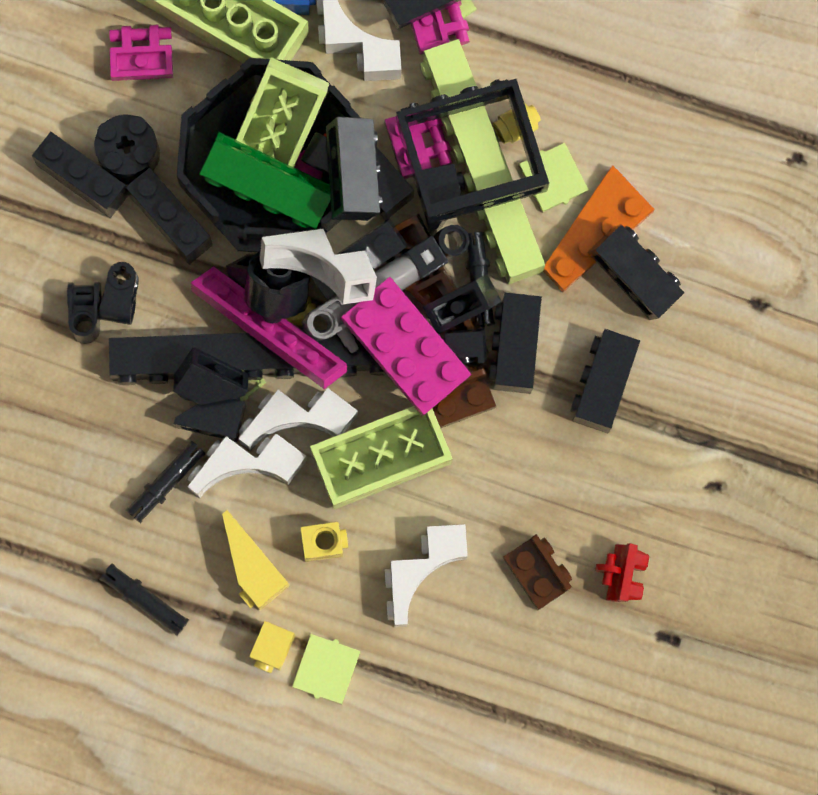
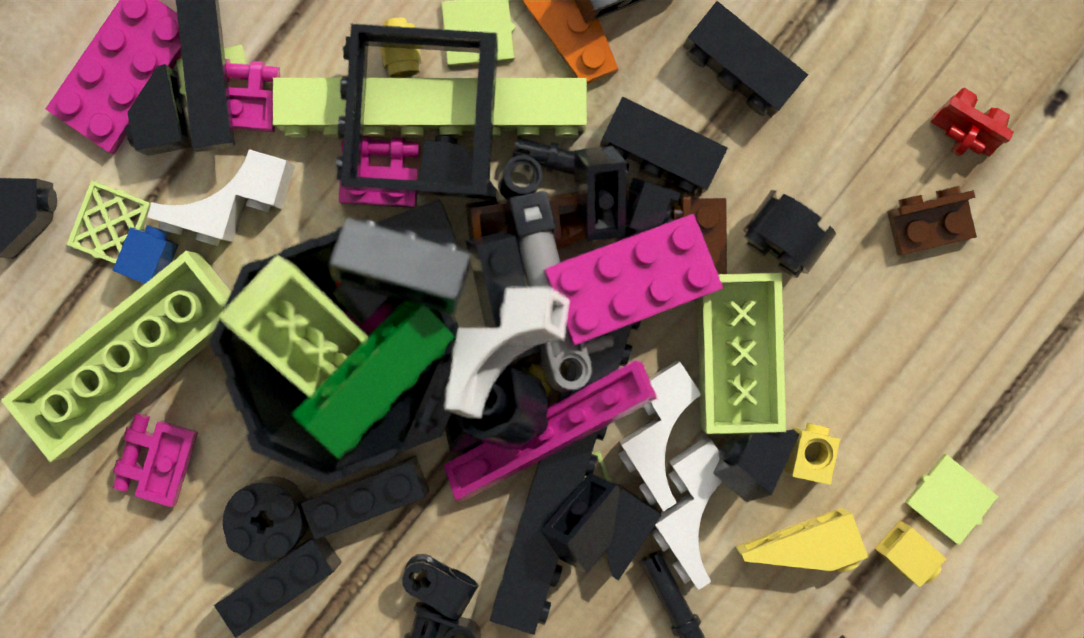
camera: 65 degrees left, 10 degrees up
(302, 491) = (755, 463): none -> black slope
(443, 546) = (869, 317): white arch -> none
(483, 456) = (788, 233): none -> black brick

